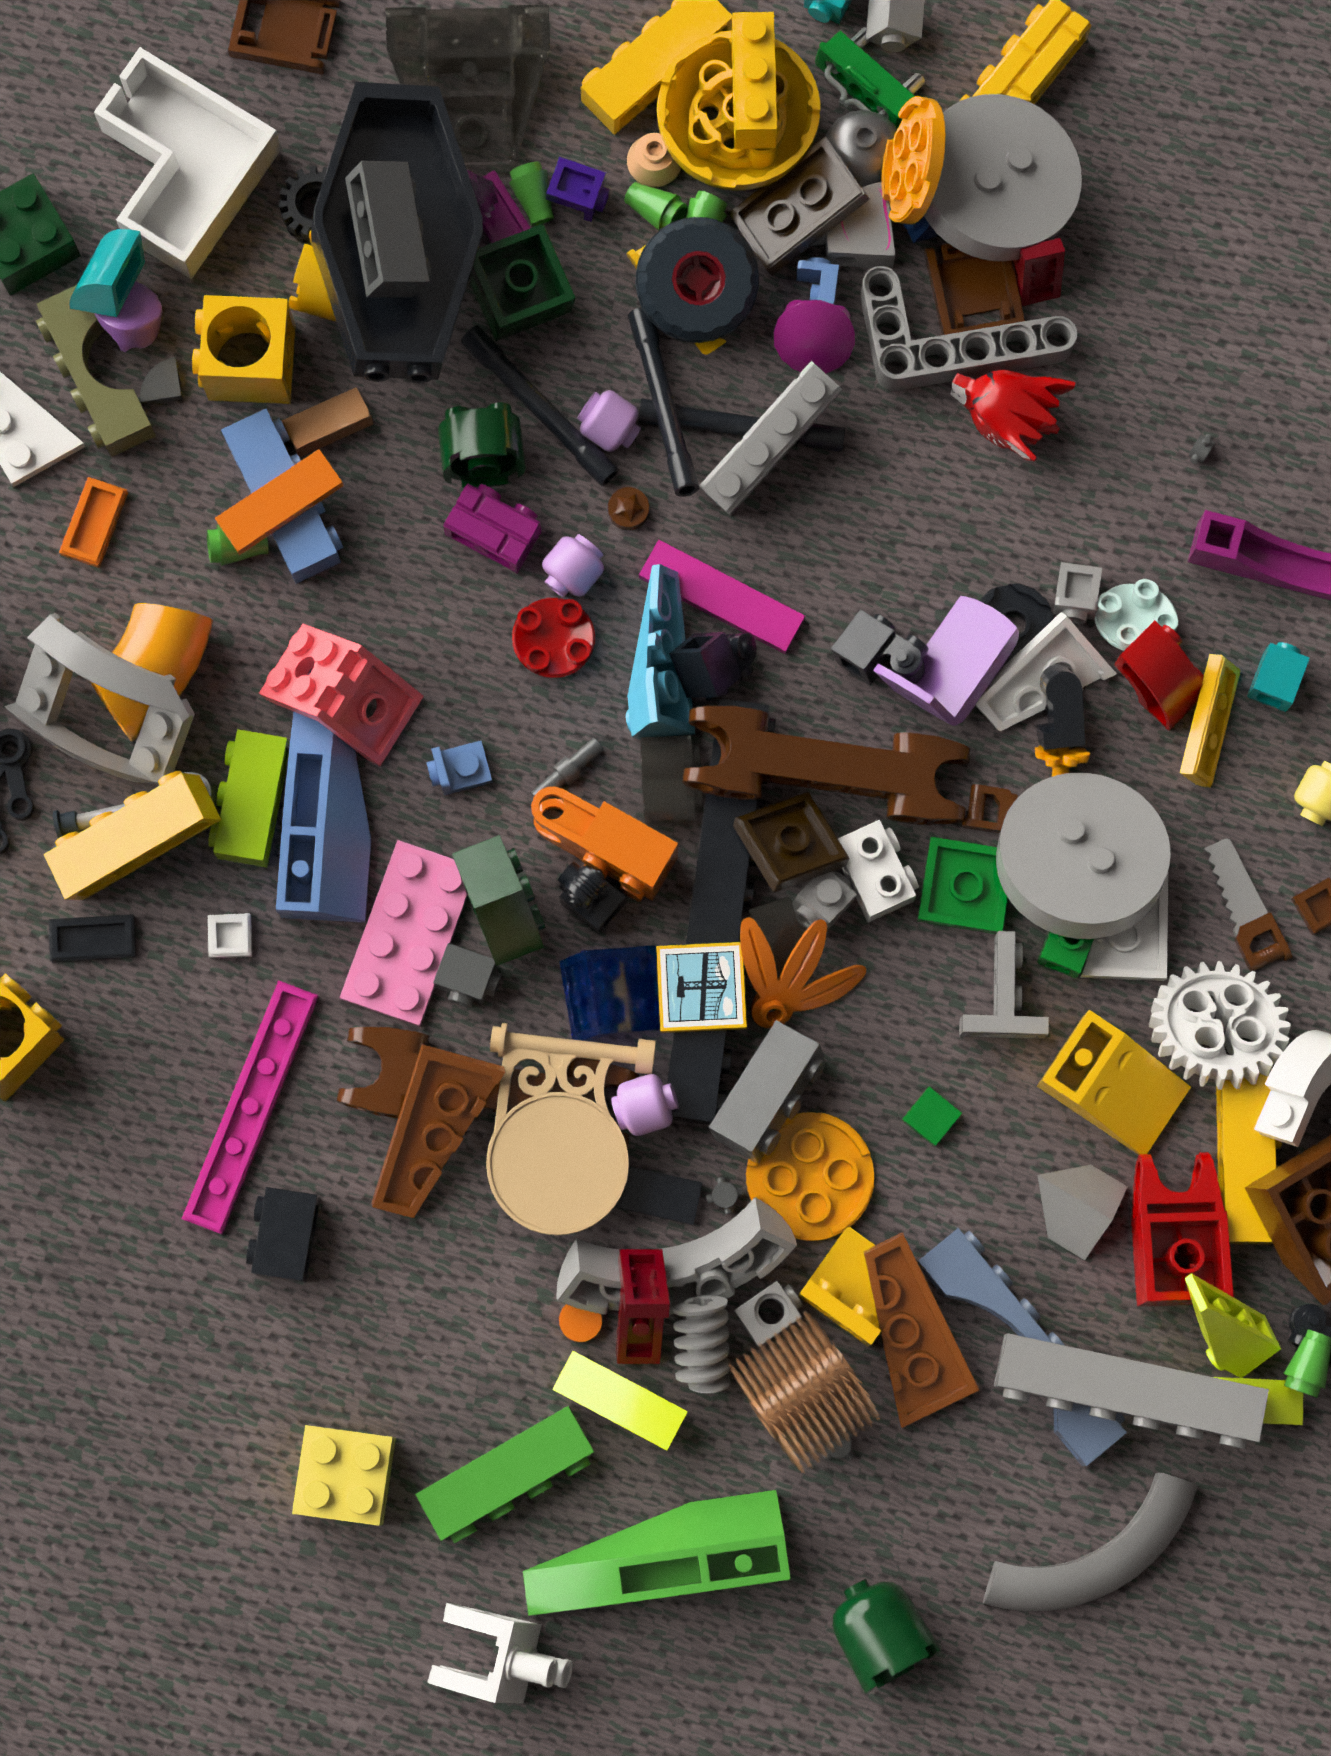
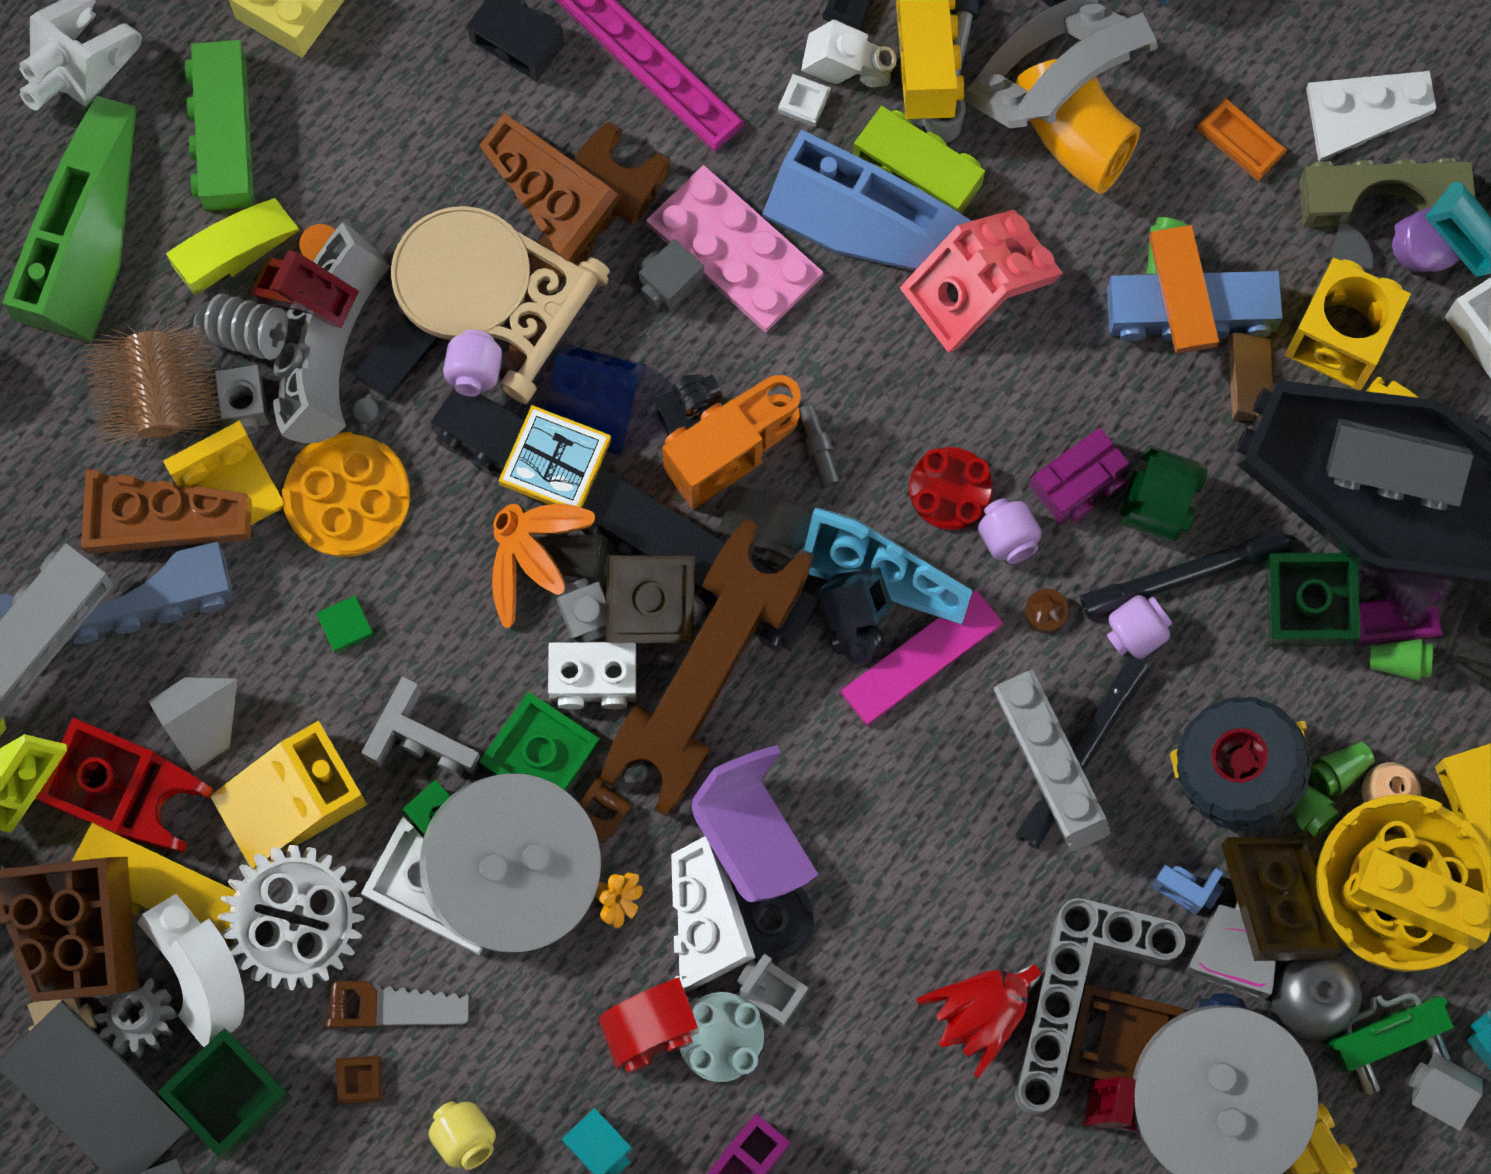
camera: 115 degrees right, 5 degrees down
(172, 910) = (840, 52): none -> white brick
(459, 768) = (865, 352): medium blue bracket -> none
(500, 899) = (719, 318): dark green brick -> none
(578, 188) = (1387, 699): dark purple bracket -> none
(678, 458) = (1069, 665): black piece -> none
(768, 1092) = (434, 483): brick -> none
(814, 333) = (1140, 854): magenta dish -> none
(874, 642) = (806, 767): brick -> none
(914, 160) = (1271, 1010): light orange tile -> none
(1064, 709) = (668, 920): black leg -> none
(1210, 721) = (586, 1057): yellow tile -> none

